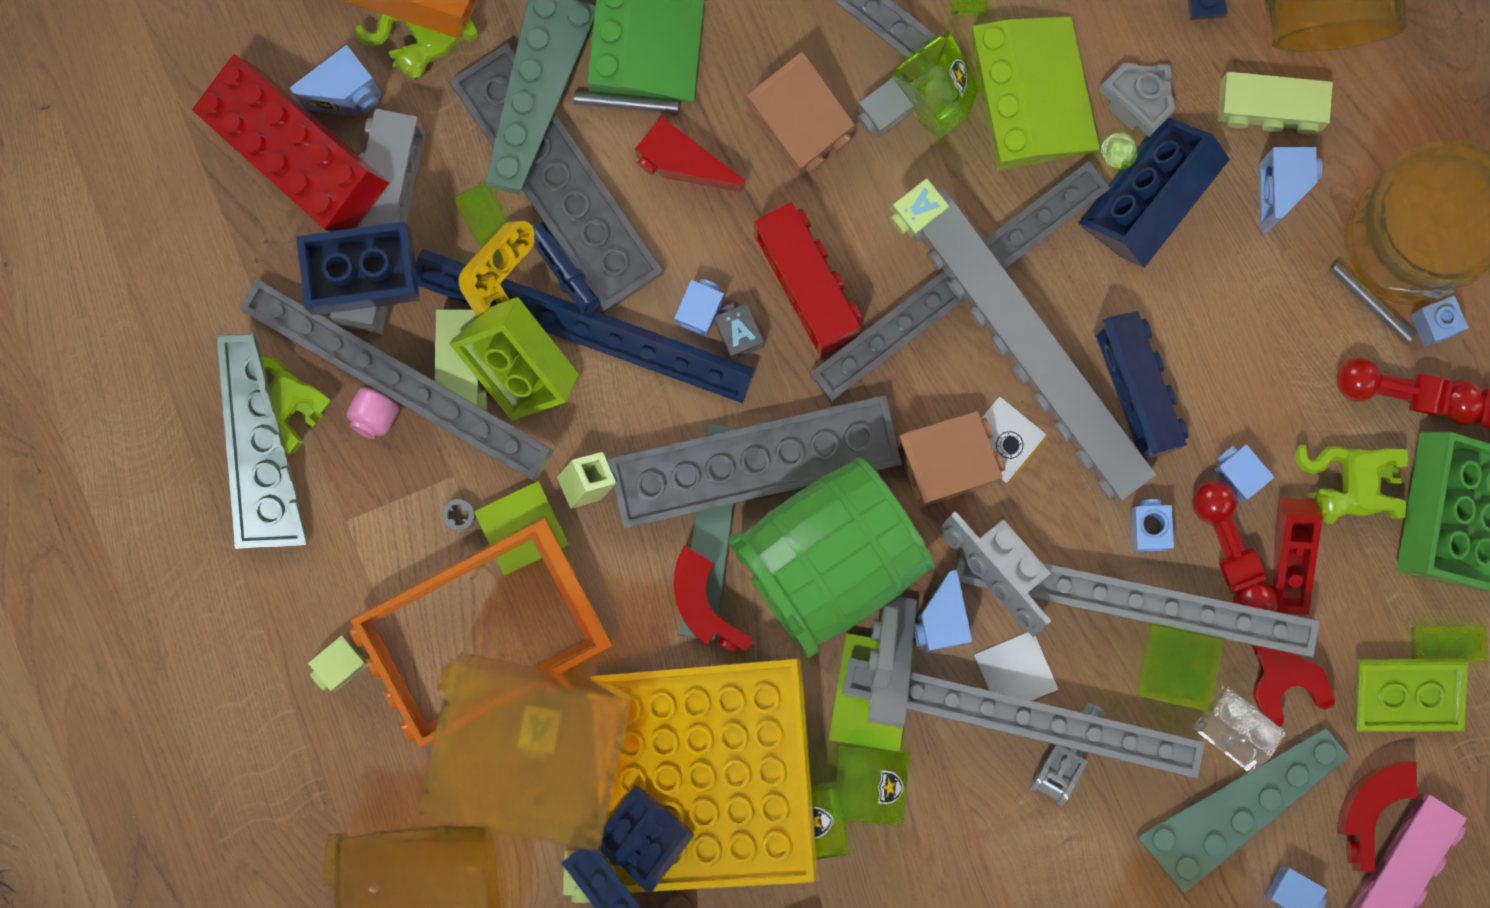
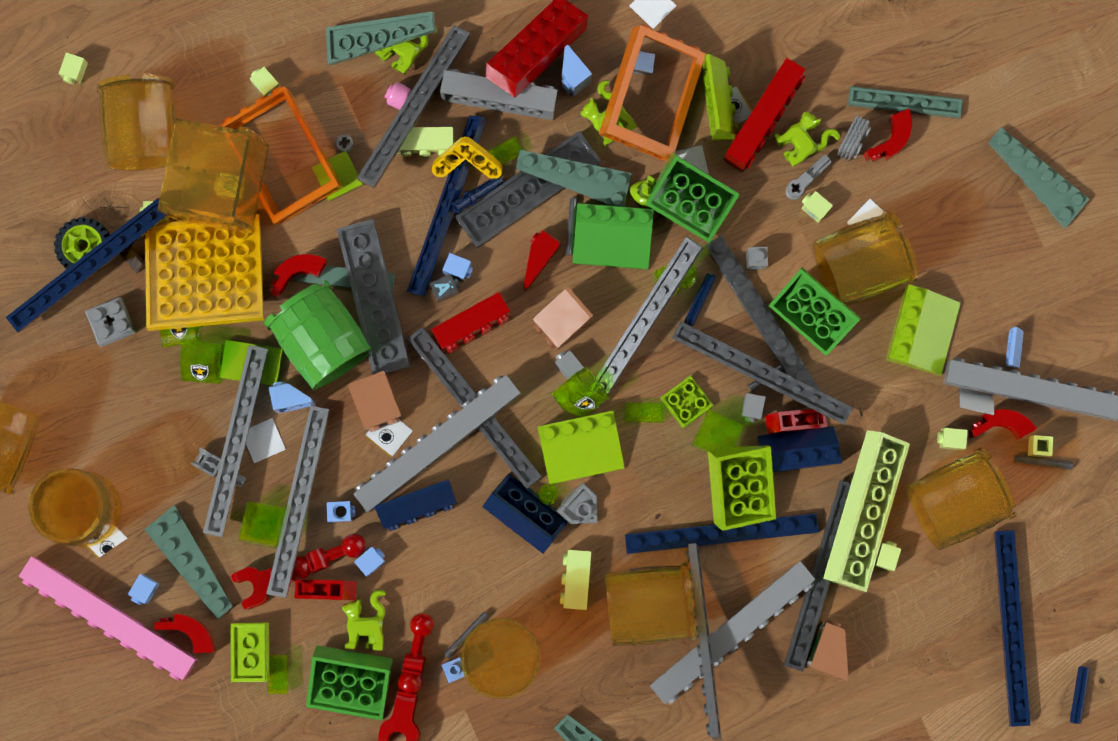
camera: 85 degrees right, 0 degrees up
(358, 268) = (466, 82): dark blue brick -> none
(515, 360) = (425, 169): lime slope -> none
(586, 480) = (362, 208): yellowish green brick -> none
(644, 838) = (172, 241): dark blue slope -> none
(891, 662) = (264, 369): light grey bracket -> none
(917, 208) = (505, 377): yellowish green brick -> none
(1004, 566) = (316, 431): light grey bracket -> none
(1240, 730) = (229, 558): clear brick -> none
(1284, 180) = (529, 584): light blue slope -> none

